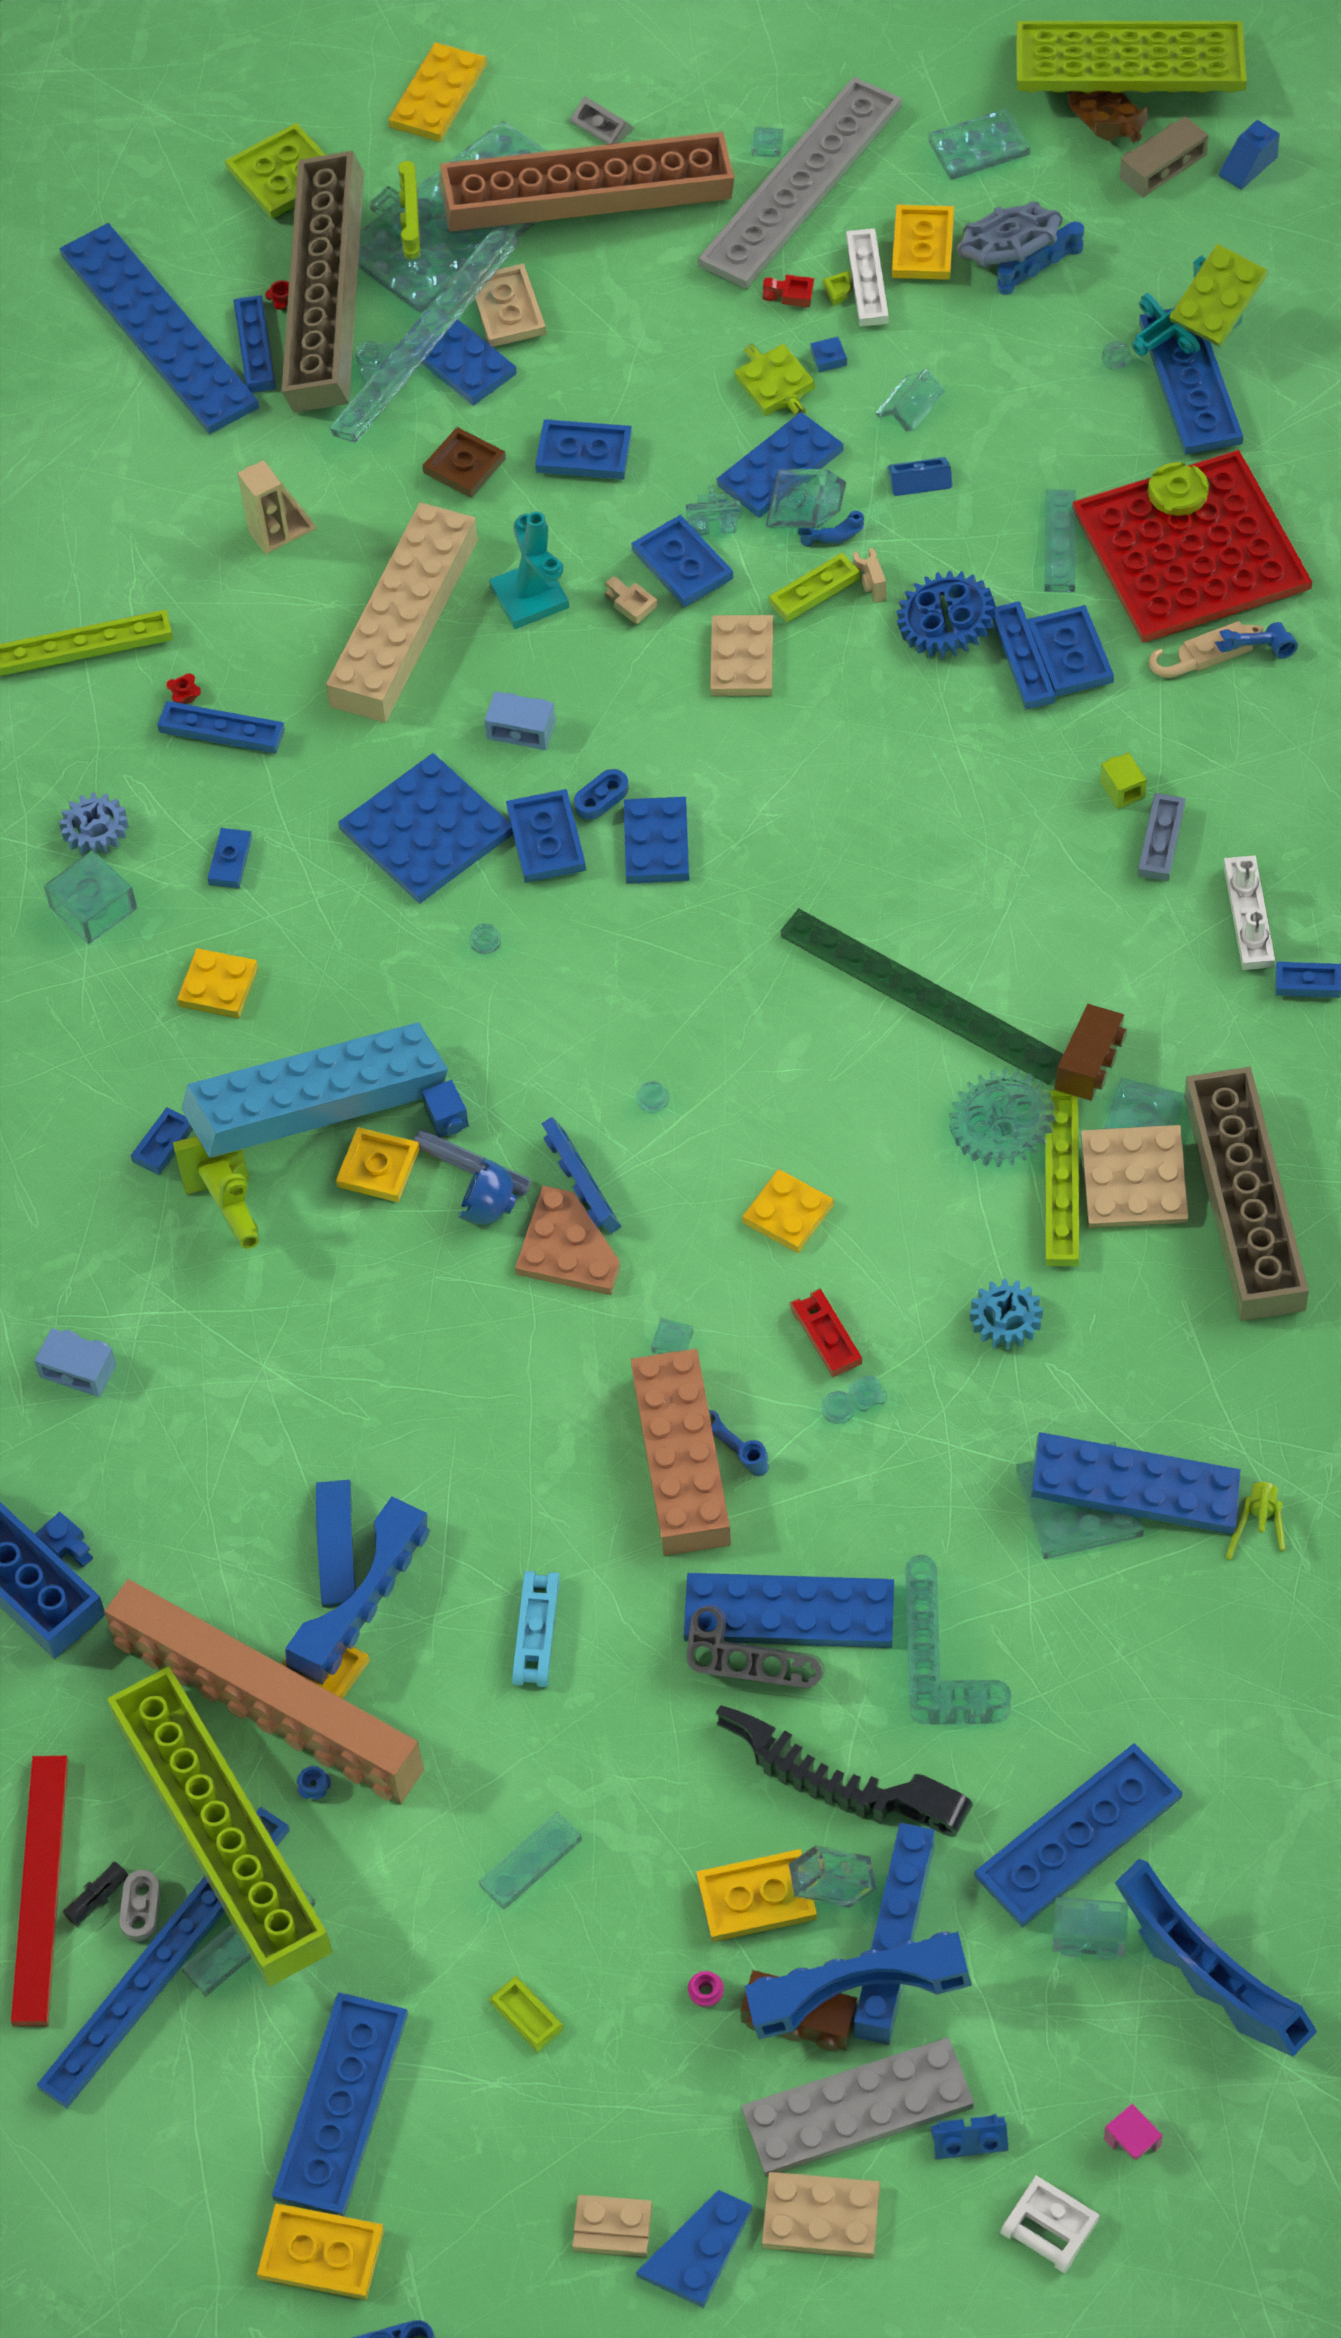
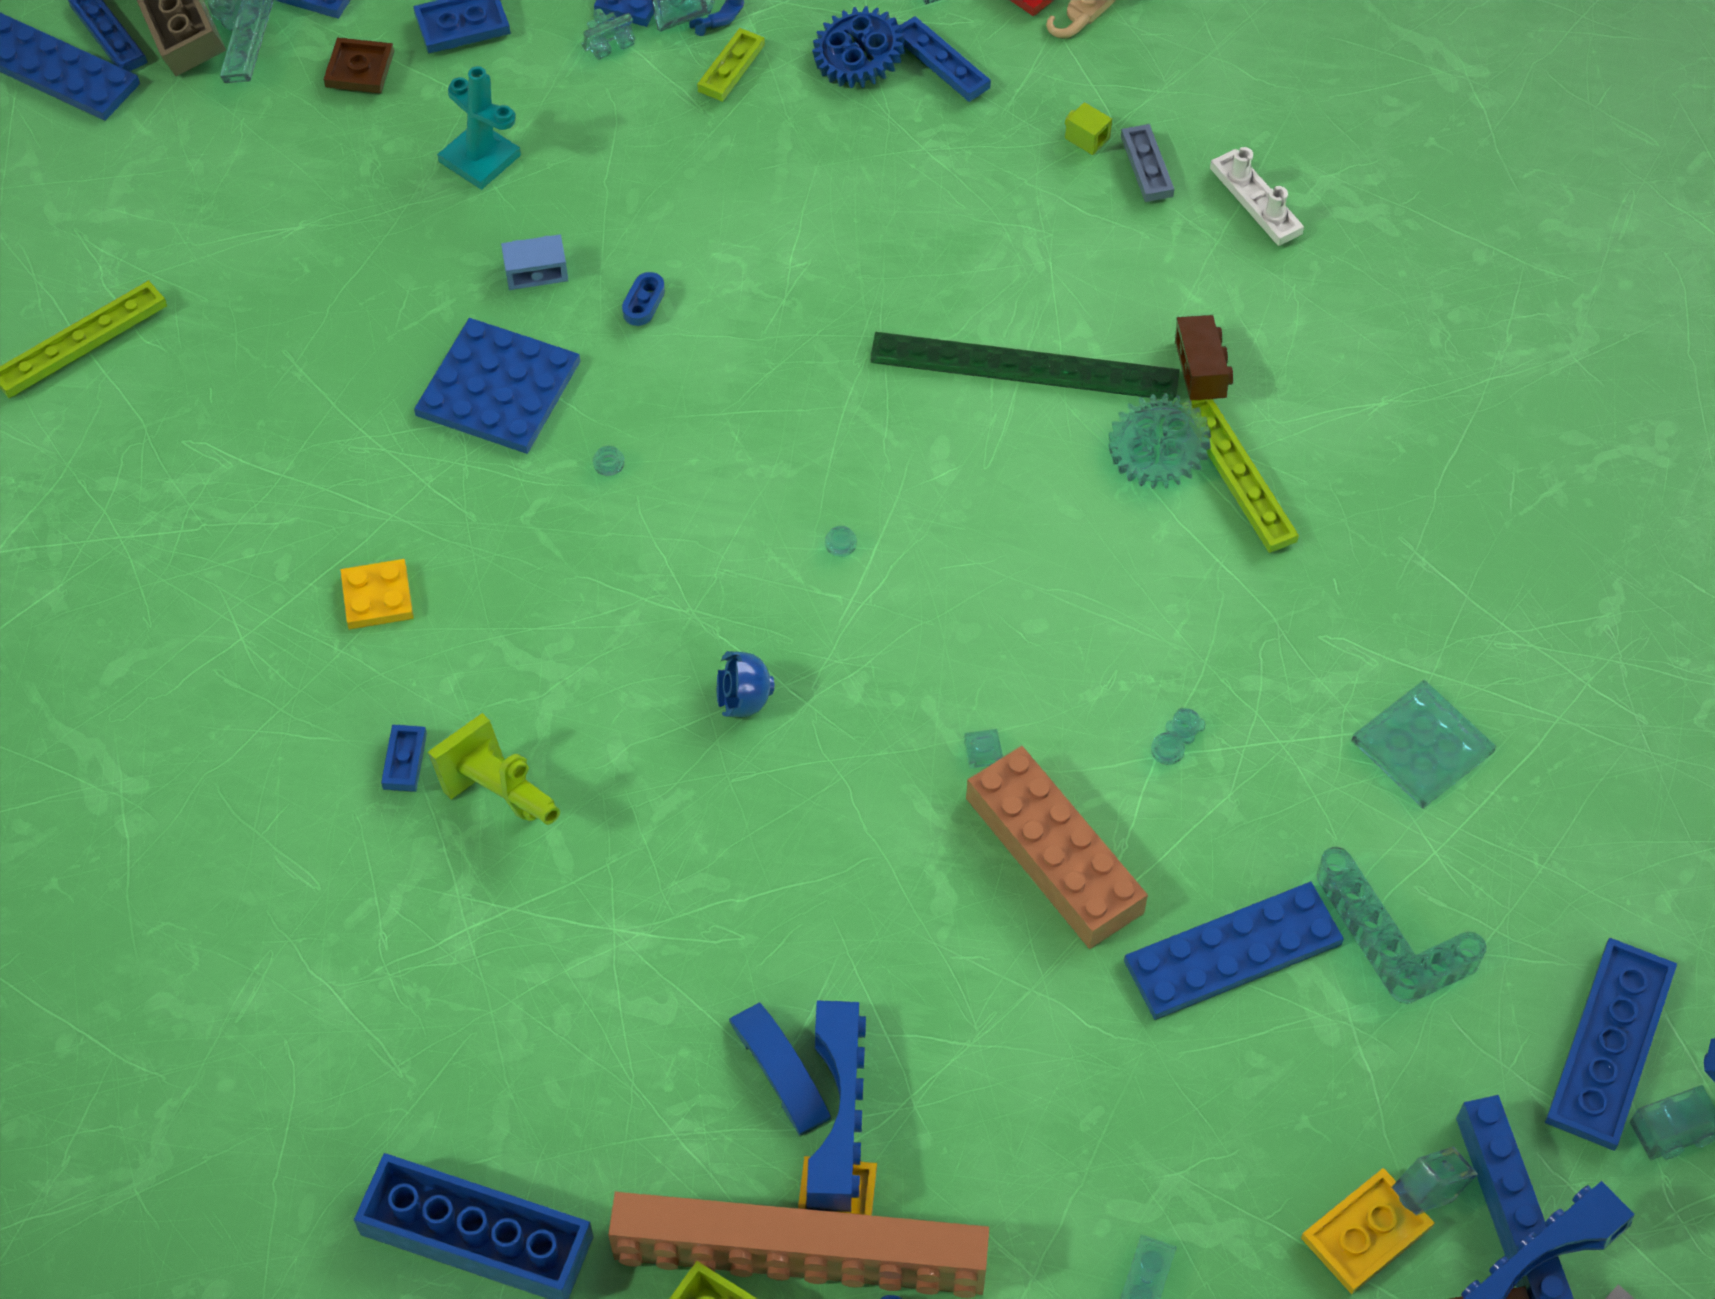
camera: 30 degrees left, 0 degrees up
(65, 1537) = (513, 1178): blue plate -> none
(75, 1362) = (431, 1001): medium blue brick -> none
(90, 897) = (212, 560): clear light blue brick -> none
(93, 824) = (179, 494): medium blue gear -> none
(181, 694) = (201, 345): red plate -> none
(221, 727) = (256, 365): blue plate -> none
(230, 858) = (327, 477): blue plate -> none
(270, 509) = (205, 157): tan wedge -> none
(312, 1089) = (534, 652): dark azure brick -> none
(377, 1164) = (623, 699): yellow plate -> none
(402, 612) = (374, 209): tan brick -> none
(445, 1108) = (659, 624): blue brick -> none
(464, 1158) = (692, 662): sand blue axle -> none
(536, 1628) = (1017, 1068): medium azure plate -> none
(545, 835) = (613, 352): blue plate -> none
(566, 1245) = (838, 703): nougat plate -> none
(574, 1166) = (828, 642): blue plate -> none
(632, 601) = (576, 129): tan plate -> none
(656, 840) = (713, 320): blue plate -> none
(682, 560) = (602, 81): blue plate -> none
(741, 655) = (699, 141): tan plate -> none
(752, 1453) = (1120, 817): blue brick -> none
(755, 1655) = (1237, 1005): dark grey beam -> none
(788, 1210) = (1018, 594): yellow plate -> none
(826, 1333) = (1118, 686): red plate -> none
(874, 578) = (779, 38): tan plate -> none
(919, 1799) = (1458, 1073): black piece -> none
(996, 1304) = (1265, 609): dark azure gear -> none
(1071, 650) = (981, 40): blue plate -> none
(1134, 1176) = (1299, 447): tan plate -> none
(1135, 1483) = (1467, 707): blue plate -> none
(1143, 1106) = (1271, 394): clear light blue plate -> none
(1246, 1194) = (1405, 425): dark tan brick -> none
(1263, 1503) = (1580, 680): lime plant -> none
(1308, 979) = (1338, 233): blue plate -> none

